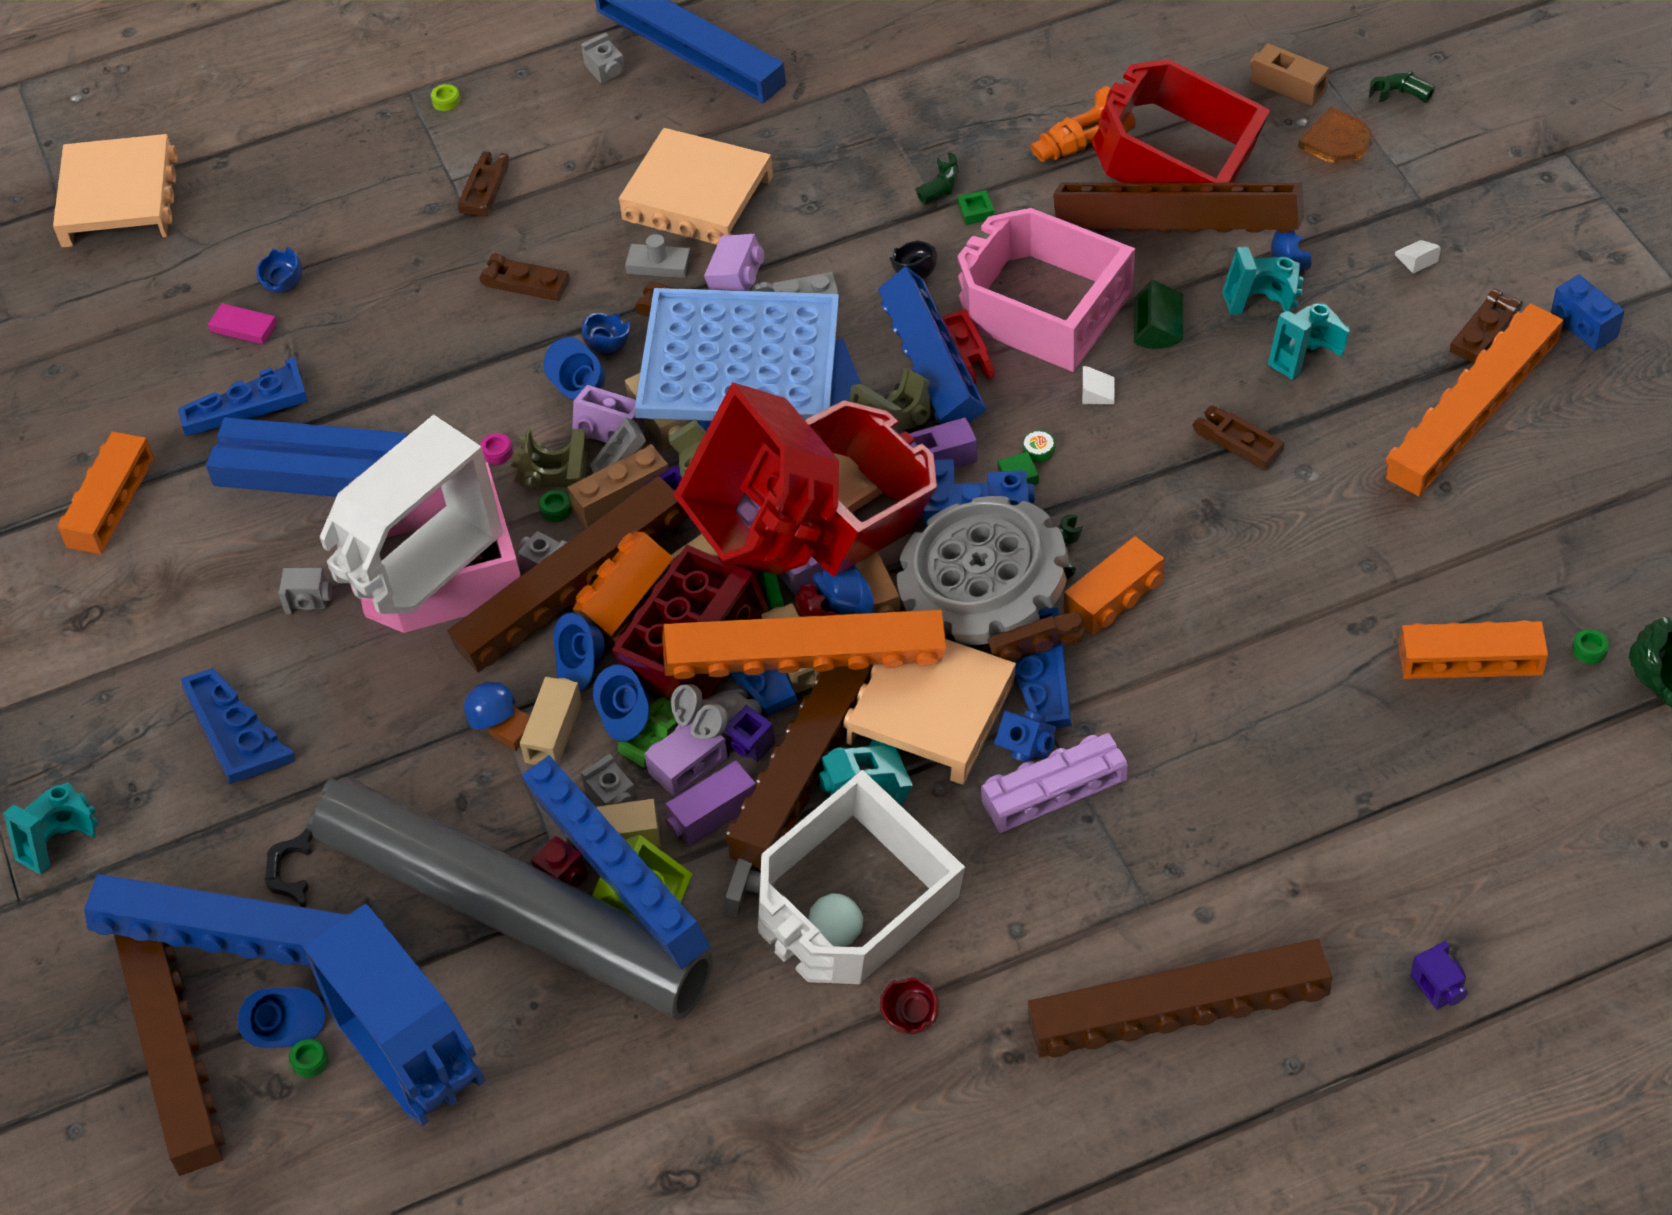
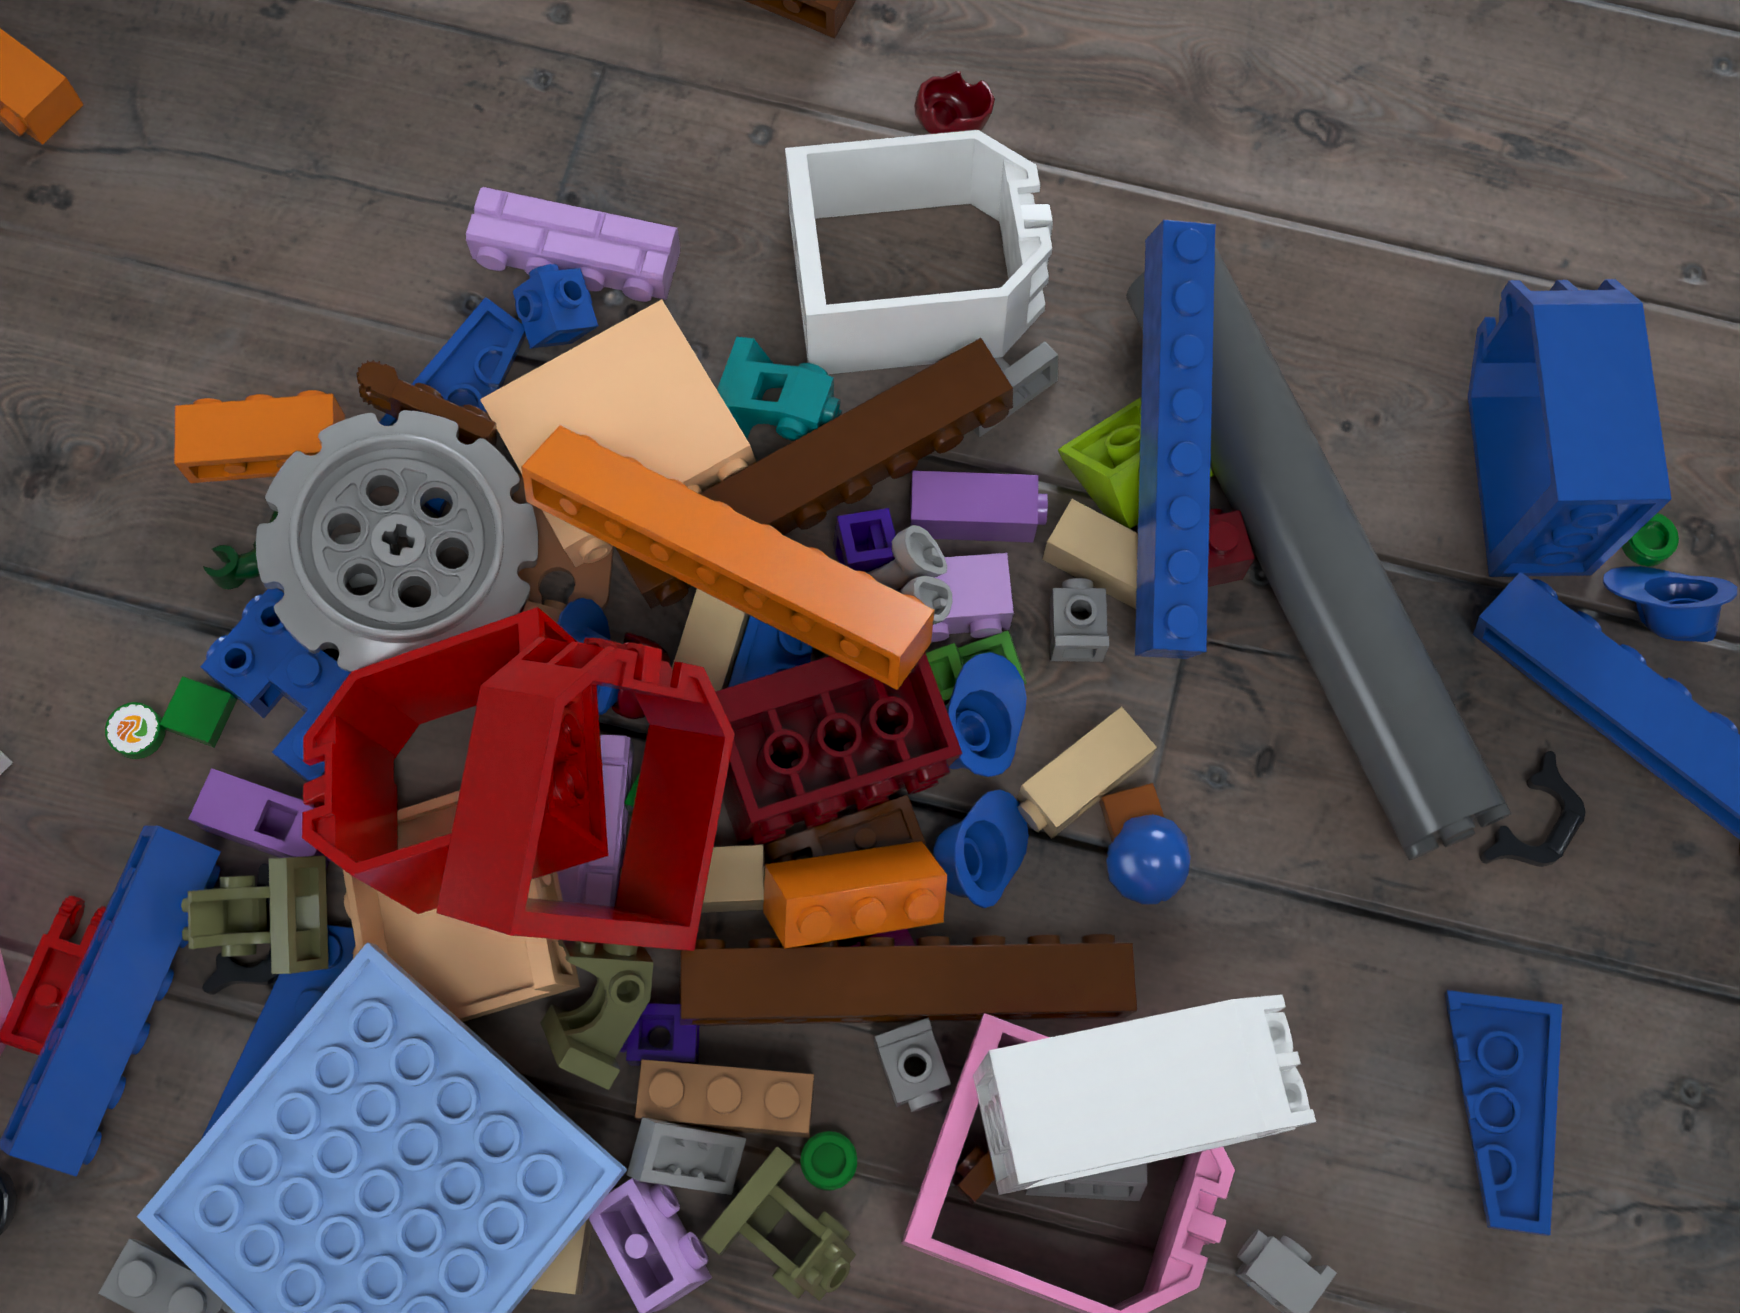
camera: 150 degrees left, 20 degrees up
(837, 919) = (946, 264): light aqua hair -> none

